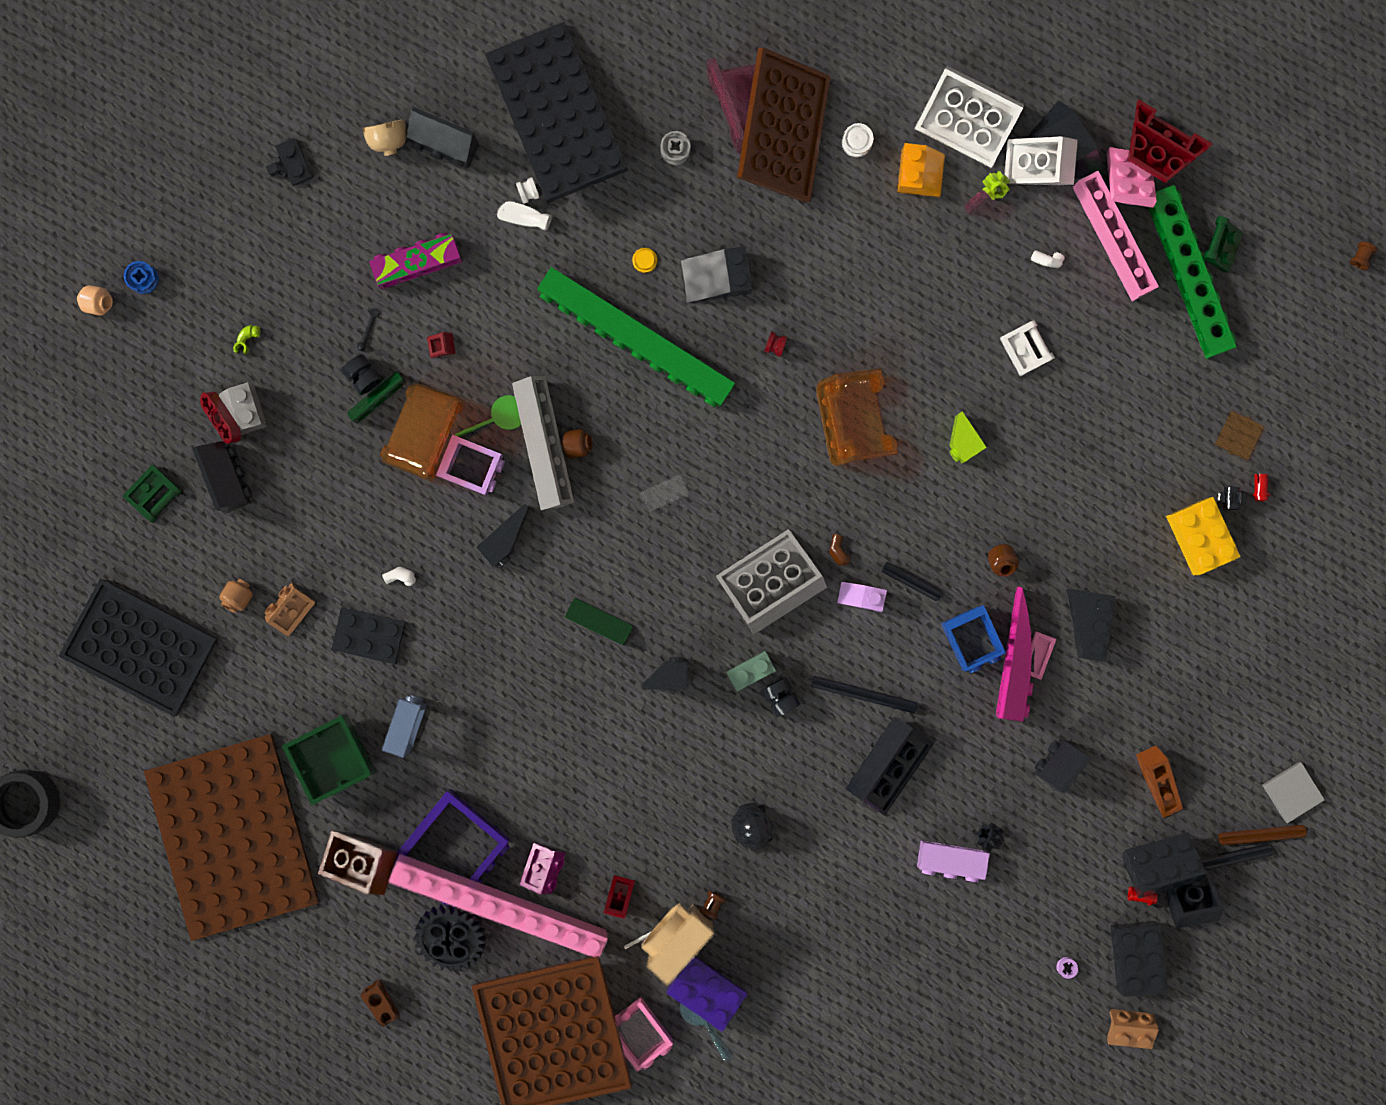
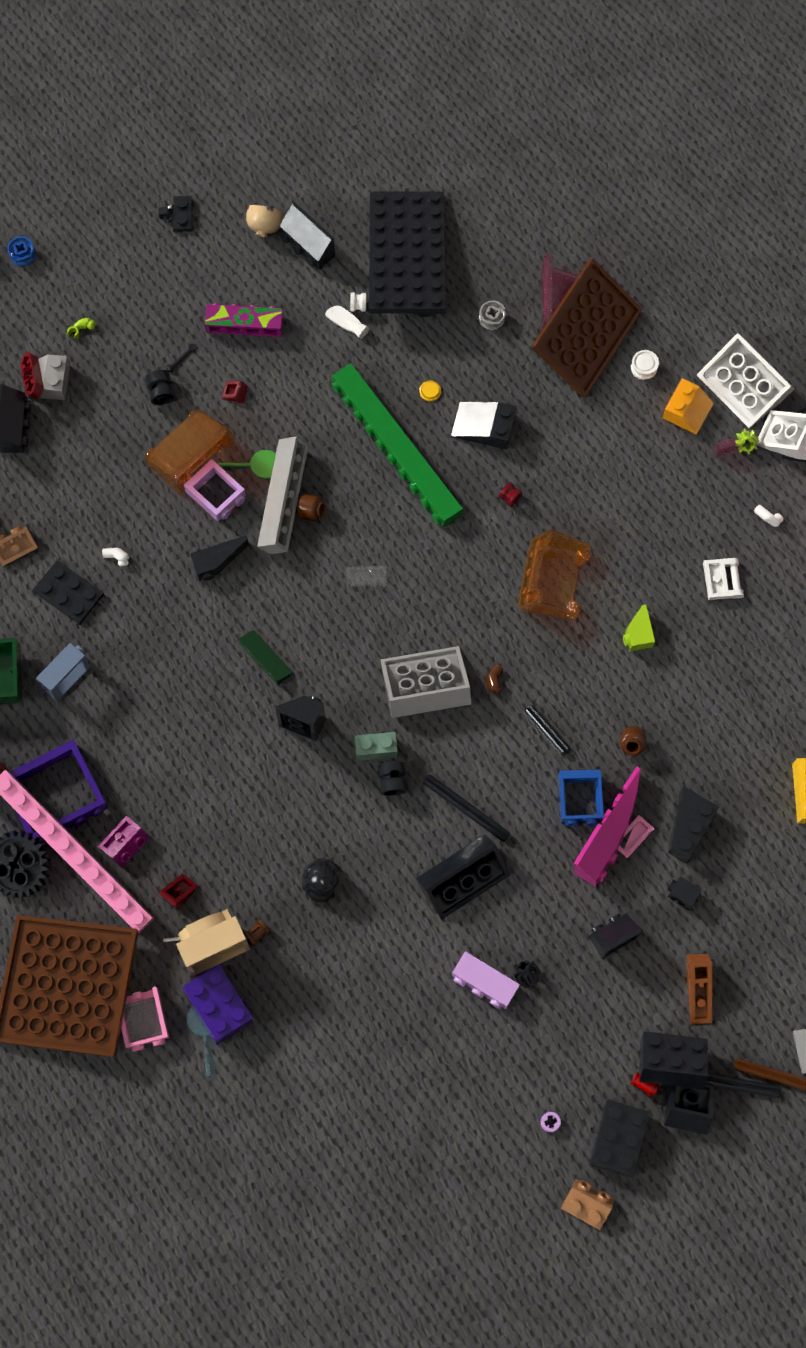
camera: 25 degrees right, 15 degrees down
(376, 397) = (164, 411): dark green slope -> none
(862, 596) = (499, 724): lavender slope -> none
(1110, 693) = (684, 892): none -> black brick

